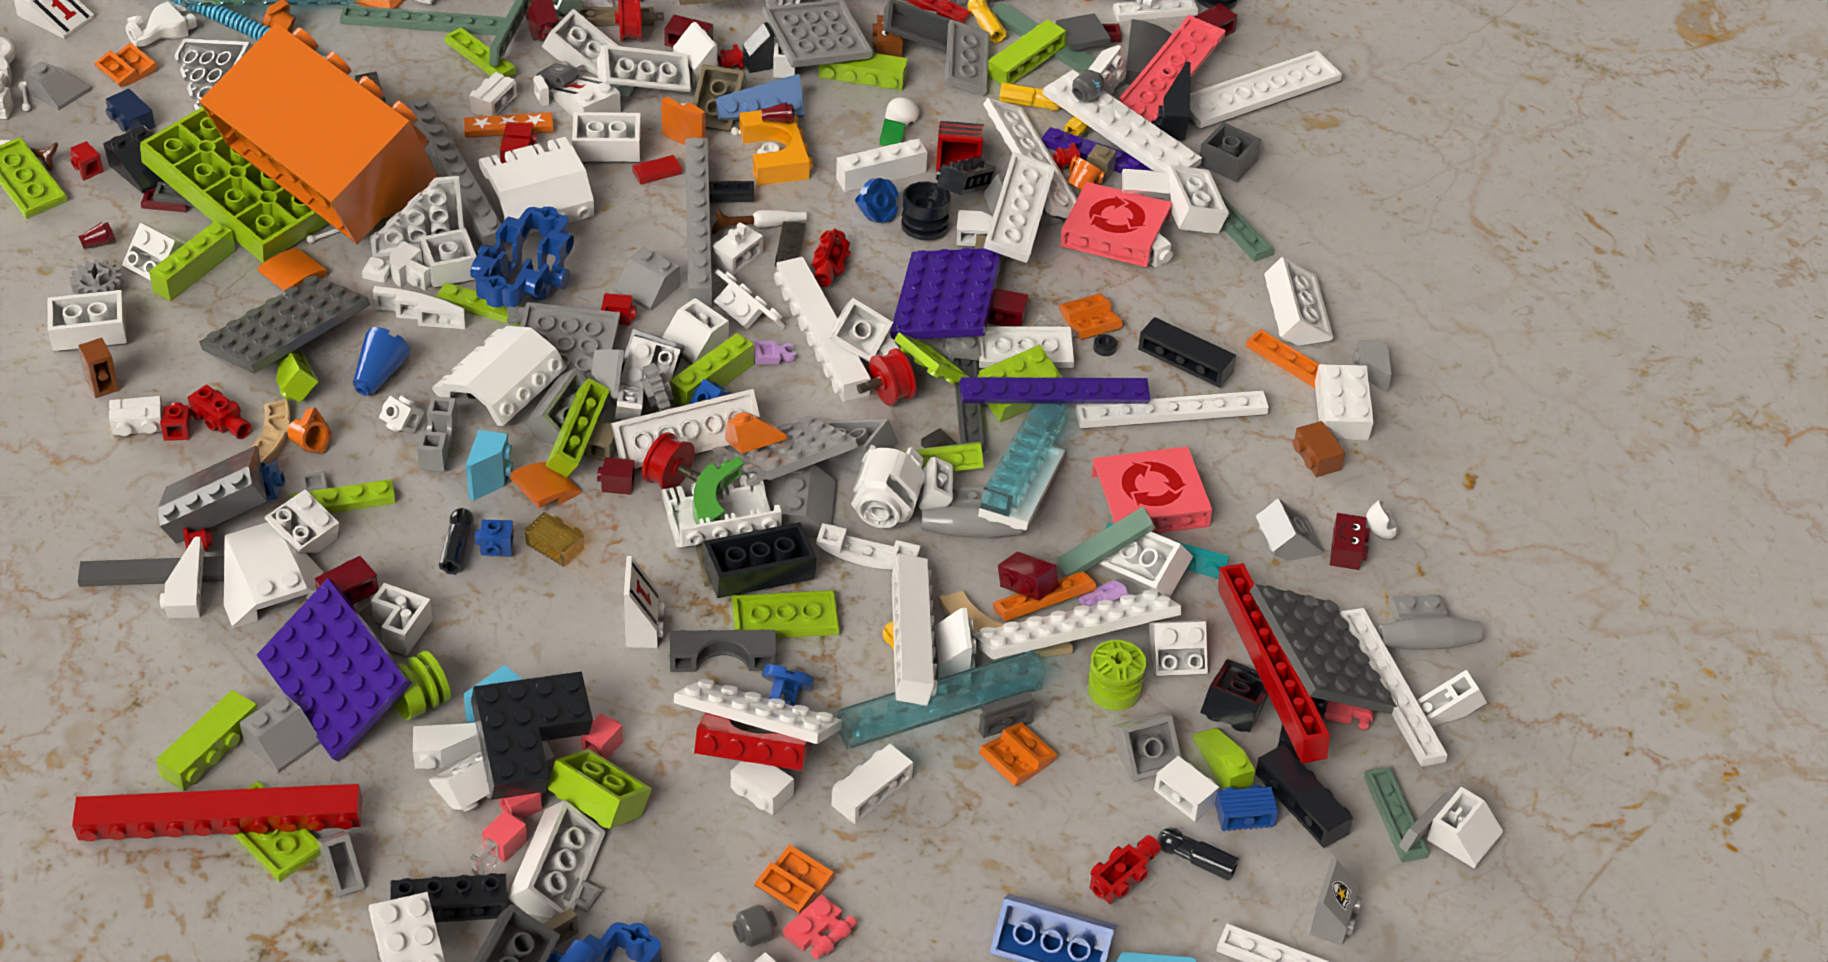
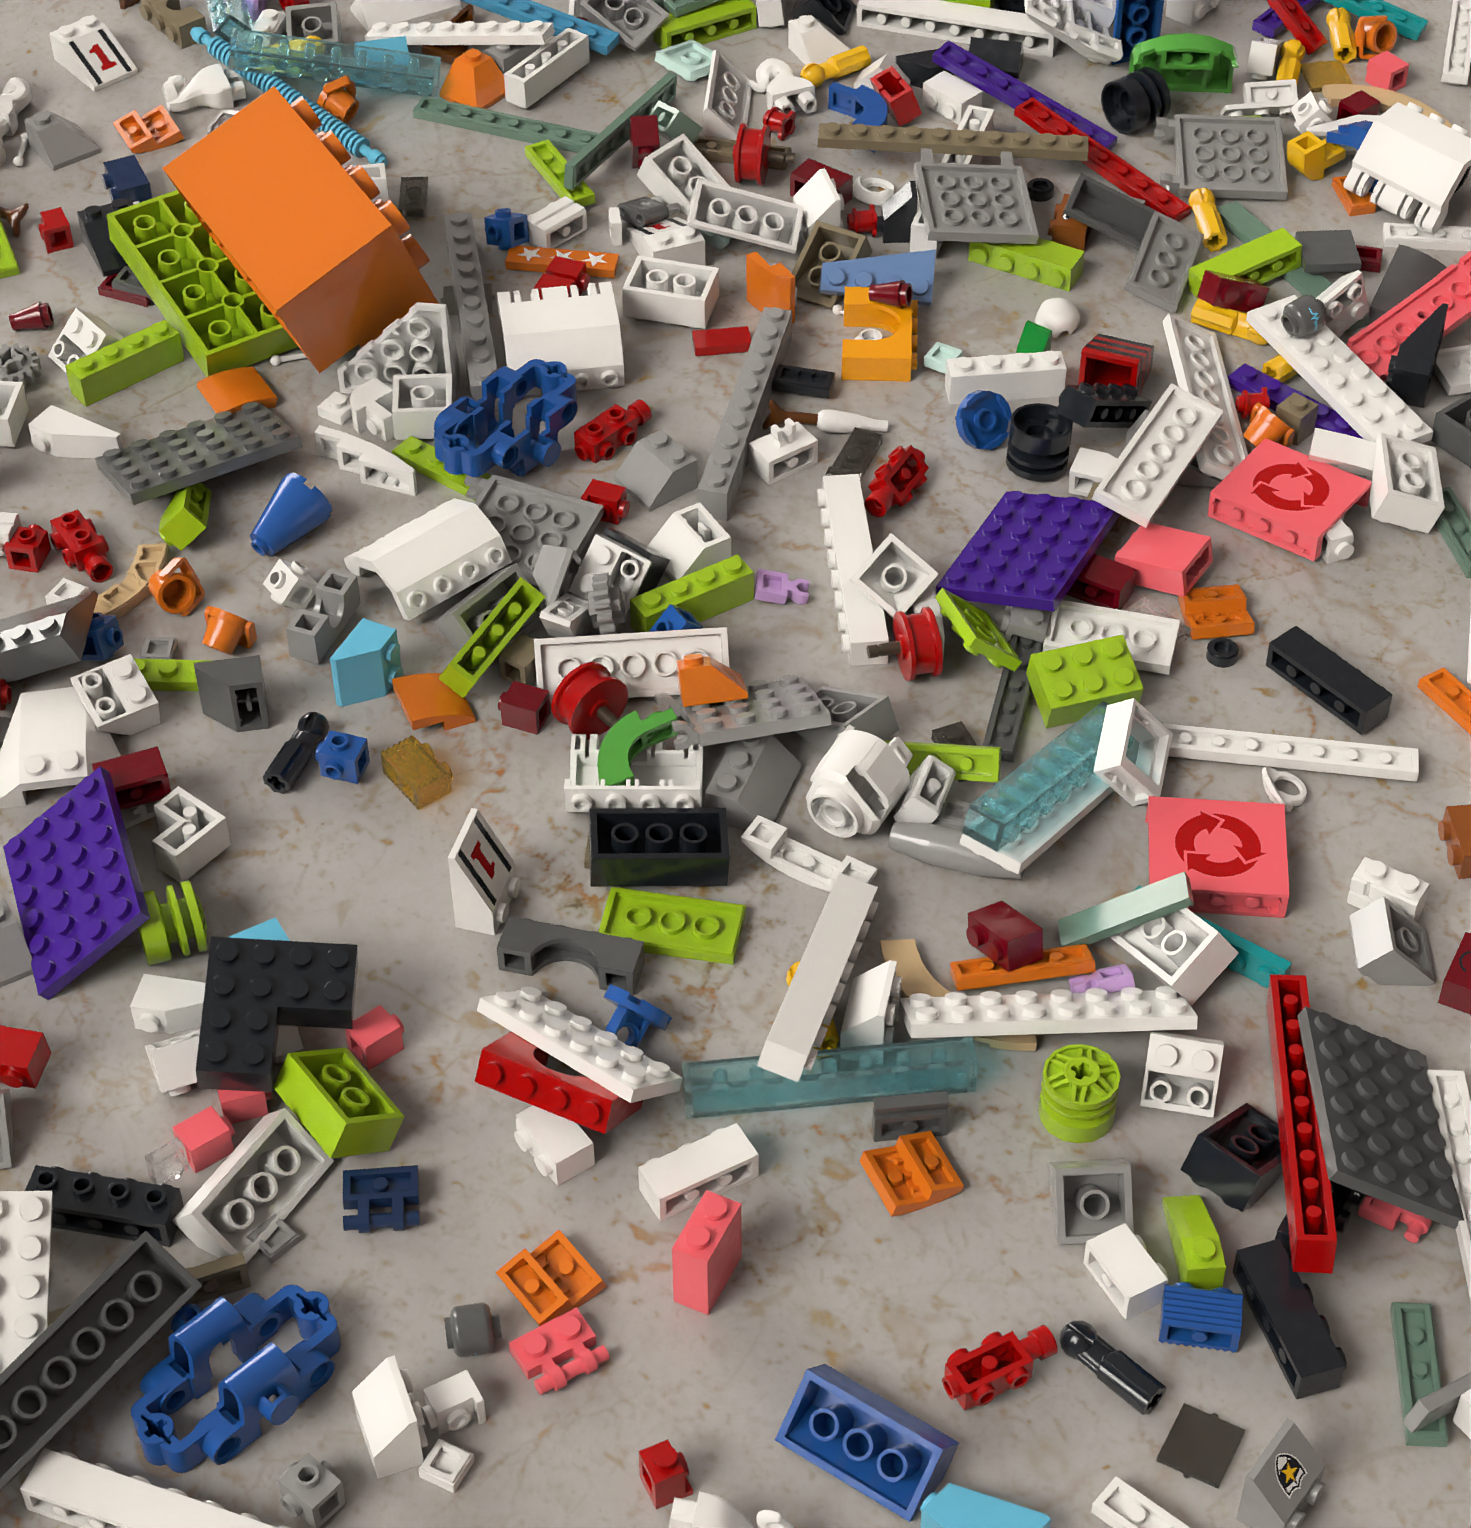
camera: 20 degrees right, 0 degrees up
(172, 326) = (70, 435): none -> white slope
(220, 451) = (64, 590): none -> white tile
(365, 458) = (227, 631): none -> orange piece
(394, 504) = (234, 692): none -> dark grey slope
(457, 105) = (501, 231): none -> blue brick
(599, 253) = (610, 430): none -> red brick
(649, 843) = (381, 1188): none -> dark blue plate
(732, 38) = (866, 196): none -> white piece
(741, 306) = (762, 523): white bracket -> none
(828, 156) = (937, 356): none -> light aqua plate
(857, 12) = (1040, 189): none -> black tile
(904, 836) = (707, 1252): none -> coral brick
(1026, 74) = (1232, 291): none -> dark red brick
(1046, 282) = (1166, 558): none -> coral brick
(1053, 390) = (1097, 692): dark purple plate -> none
(1073, 428) = (1145, 777): none -> white window
(1179, 442) = (1270, 776): none -> white piece
(1268, 489) = (1377, 880): none -> white brick
(1271, 892) = (1200, 1445): none -> clear smoke piece

